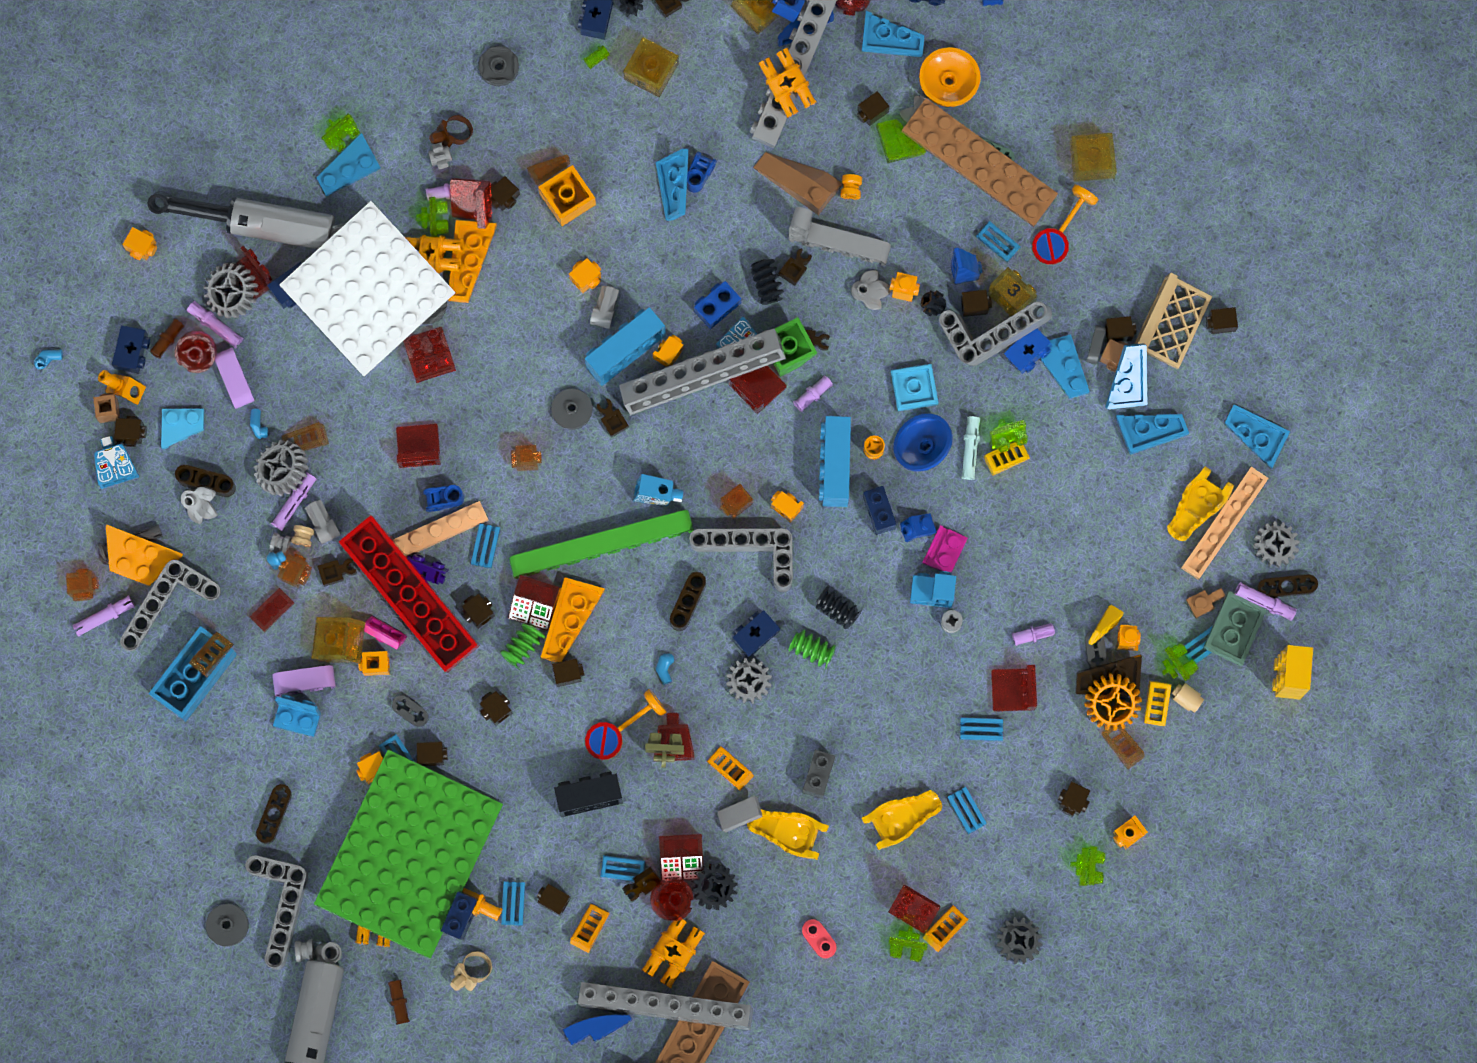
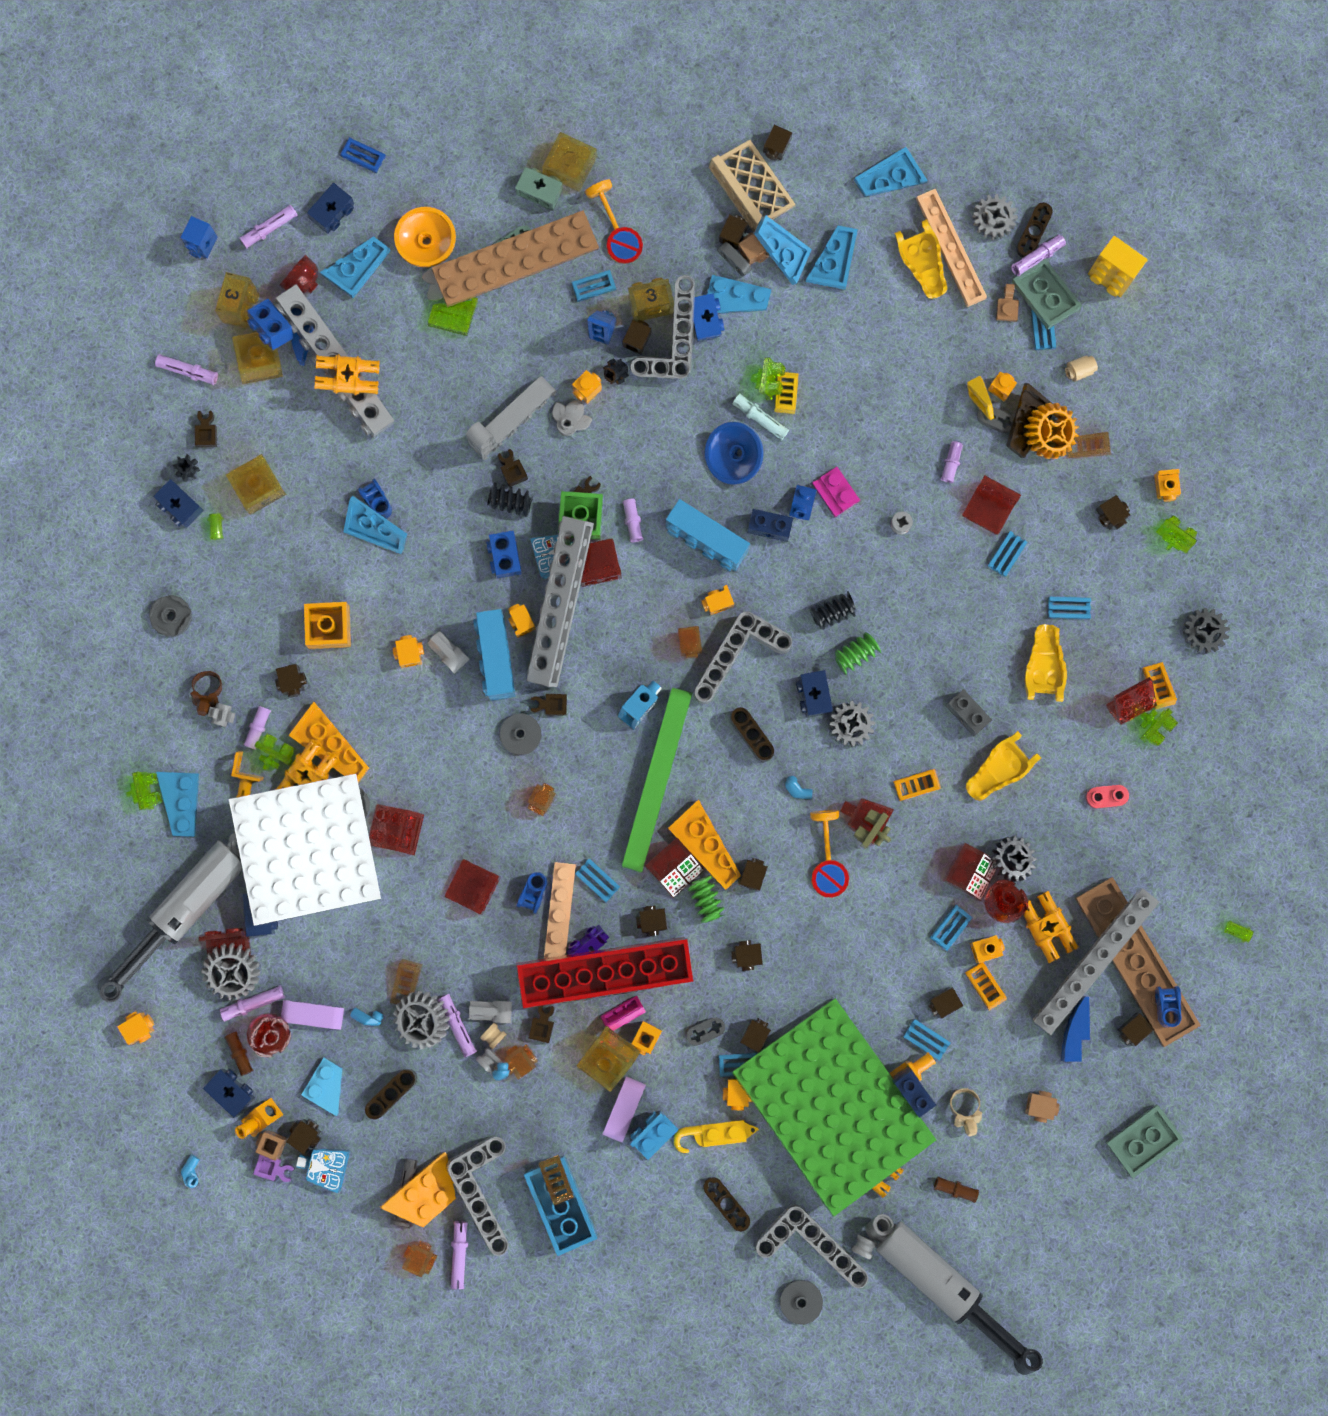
camera: 60 degrees left, 5 degrees up
(87, 420) = (270, 1169): none -> medium lavender plate
(200, 505) = (410, 1111): light grey plate -> none
(271, 610) = (543, 1101): clear red plate -> none
(328, 770) = (715, 1134): none -> yellow plate
(398, 208) = (245, 779): none -> light orange bracket
(471, 200) = (280, 711): clear red bracket -> none
(513, 1035) = (1042, 1106): none -> medium nougat brick
(546, 169) = (291, 631): clear orange slope -> none
(588, 794) = (873, 919): black brick -> none
(618, 901) = (980, 952): none -> light orange brick
(643, 883) = (975, 917): dark brown plate -> none
(740, 814) = (964, 799): light grey tile -> none
(804, 183) = (441, 416): medium nougat wedge -> none
(851, 186) = (469, 378): light orange wheel -> none
(872, 109) = (411, 319): dark brown brick -> none
(875, 444) = (712, 492): light orange wheel -> none
(914, 387) = (679, 432): medium azure plate -> none
(933, 590) = (870, 517): dark azure brick -> none
(1053, 157) = (545, 196): none -> sand green brick
(1166, 695) = (1059, 395): yellow slope -> none
(1174, 654) = (1058, 355): clear neon green hips -> none

